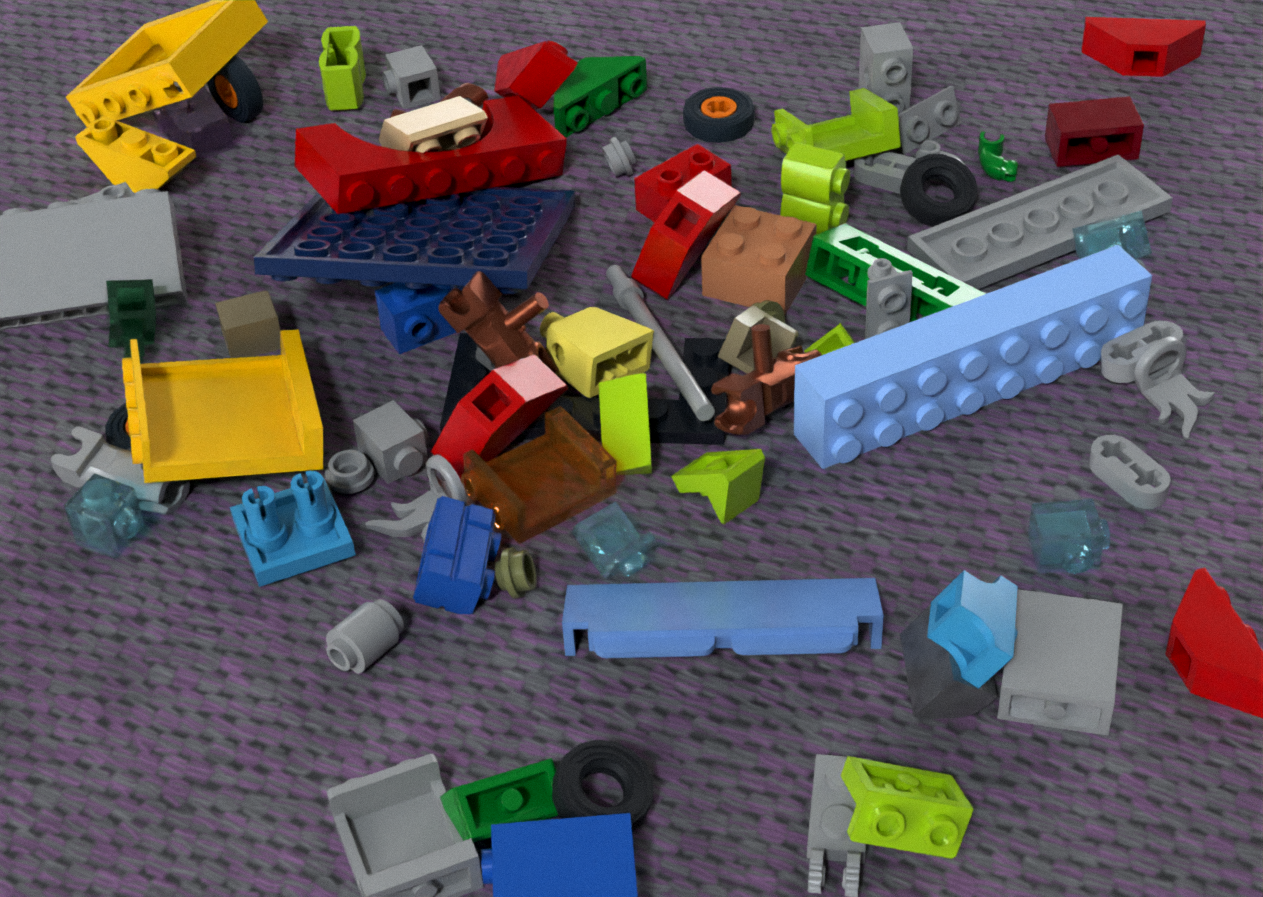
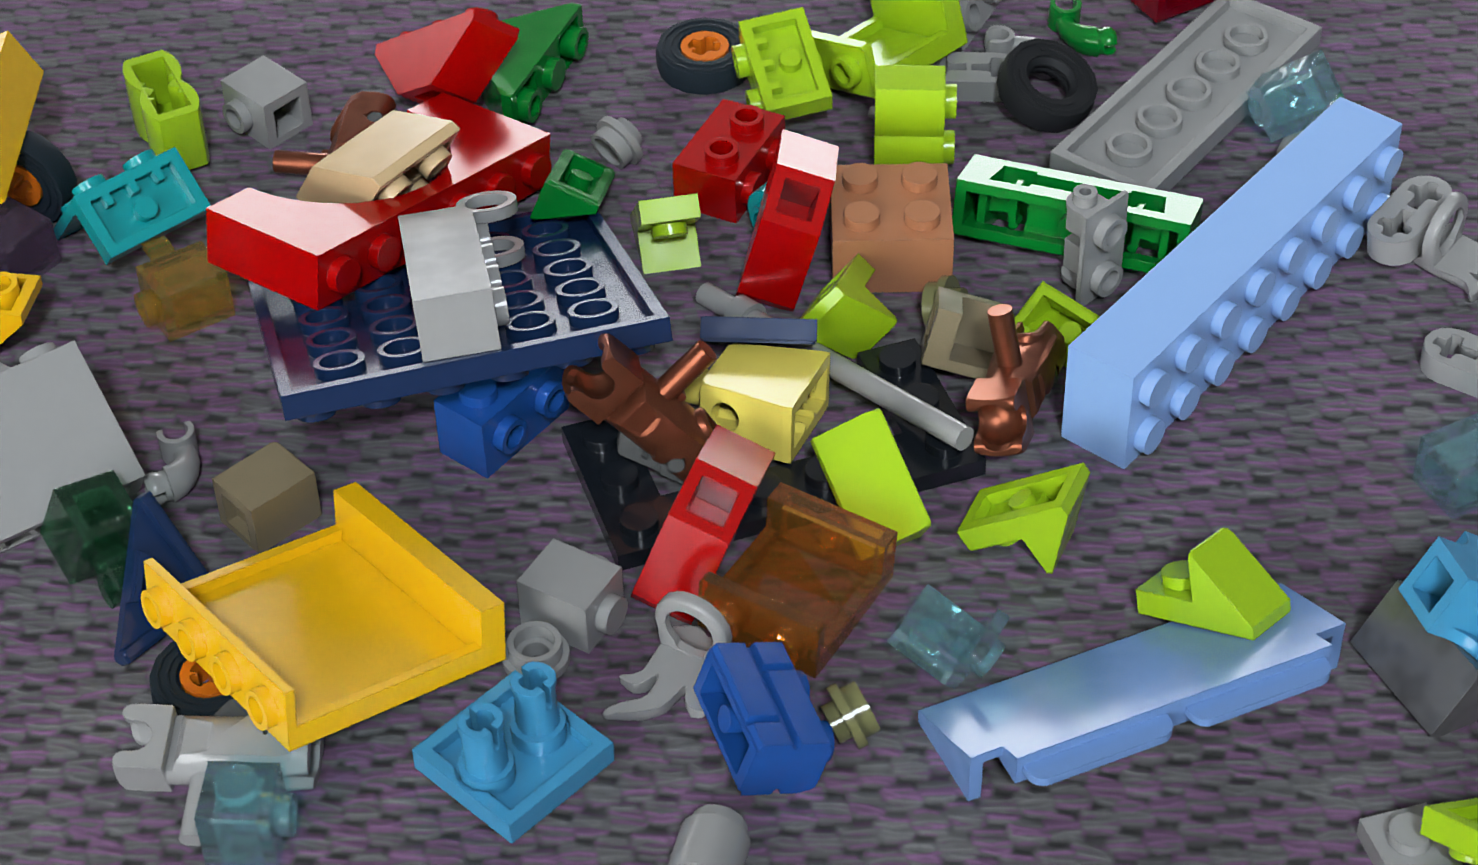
camera: 25 degrees left, 0 degrees up
(155, 345) = (154, 537): none -> dark blue tile
(204, 301) = (181, 470): none -> light grey arm
(273, 121) = (134, 206): none -> teal bracket
(280, 183) = (181, 289): none -> clear yellow brick
(416, 209) = (458, 275): none -> light grey hinge
(564, 178) = (573, 187): none -> green slope
(609, 301) = (758, 330): none -> dark blue tile
(610, 224) = (667, 233): none -> lime slope
(687, 306) = (848, 312): none -> lime slope
(751, 131) = (781, 64): none -> lime bracket
(813, 565) = (1216, 590): none -> lime slope

